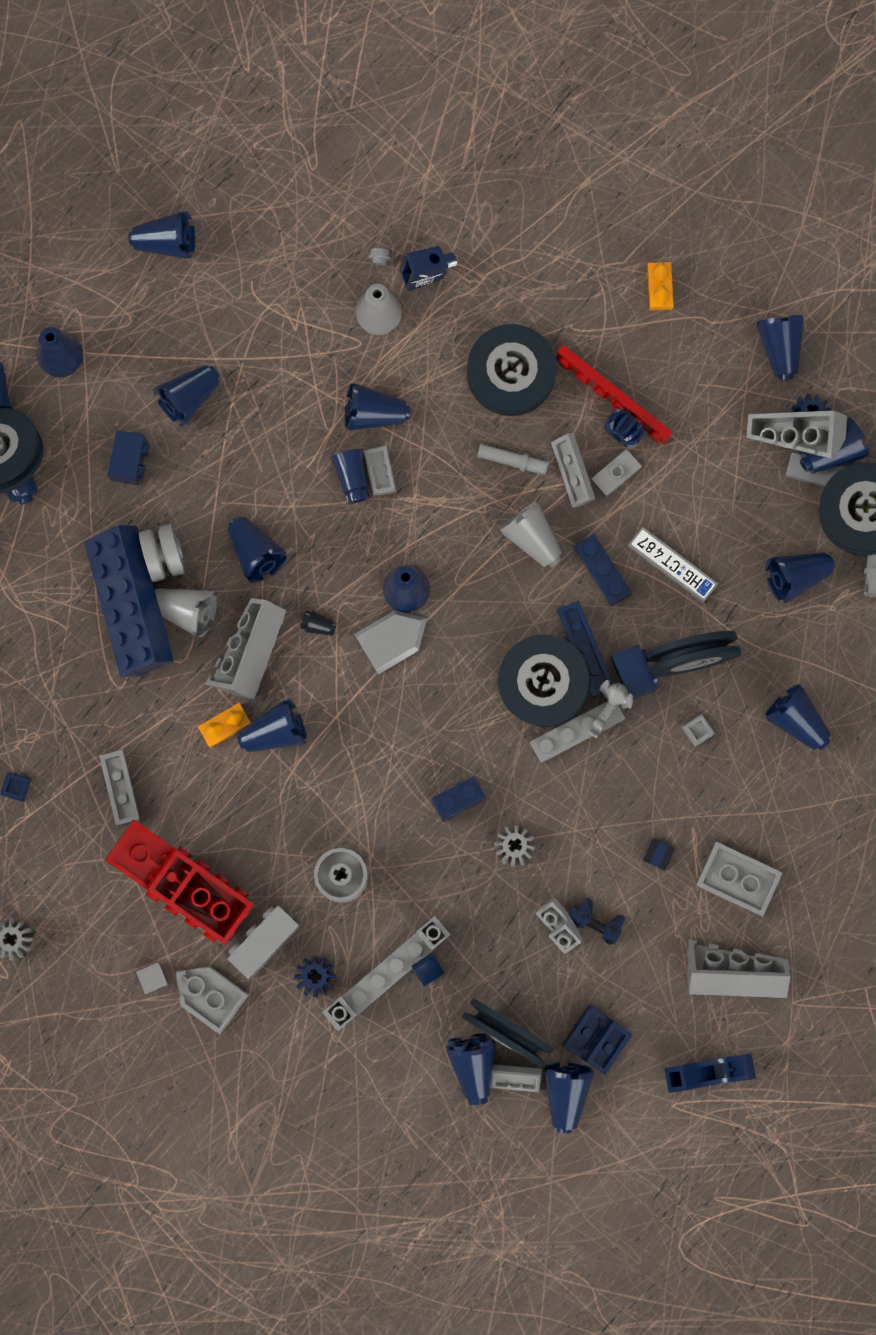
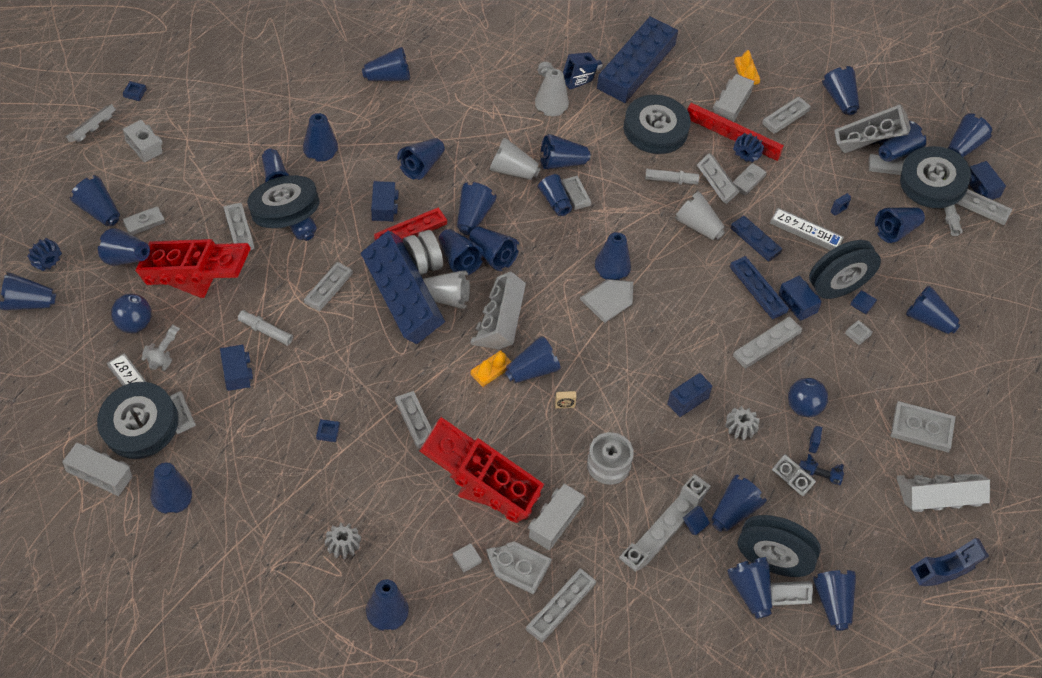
camera: 15 degrees left, 25 degrees down
(42, 578) = (328, 286): none -> light grey tile
(60, 1029) = (387, 606): none -> dark blue cone
(157, 504) = (427, 221): none -> red plate
(210, 552) = (460, 252): none -> dark blue cone
(239, 486) = (474, 205): none -> dark blue cone
(249, 1052) = (560, 605): none -> light grey tile
(304, 784) = (565, 399): none -> tan tile
(306, 416) = (514, 161): none -> light grey cone
(317, 624) = (551, 292): black cone -> none
(320, 970) = (605, 537): dark blue gear -> none
(478, 958) = (737, 503): none -> dark blue cone
(509, 254) = (637, 59): none -> dark blue brick
(519, 668) = (752, 310): black wheel -> none
(597, 1039) = (846, 555): dark blue slope -> none
(598, 880) = (815, 439): none -> dark blue tile
(602, 825) = (808, 397): none -> dark blue piece
(617, 695) = (793, 309): light grey piece -> none
(626, 338) = (733, 97): none -> light grey brick
(658, 854) = (855, 418): tile -> none
(694, 372) = (786, 115): none -> light grey plate
(717, 686) = (863, 302): none -> dark blue tile
(727, 532) = (841, 204): none -> dark blue tile

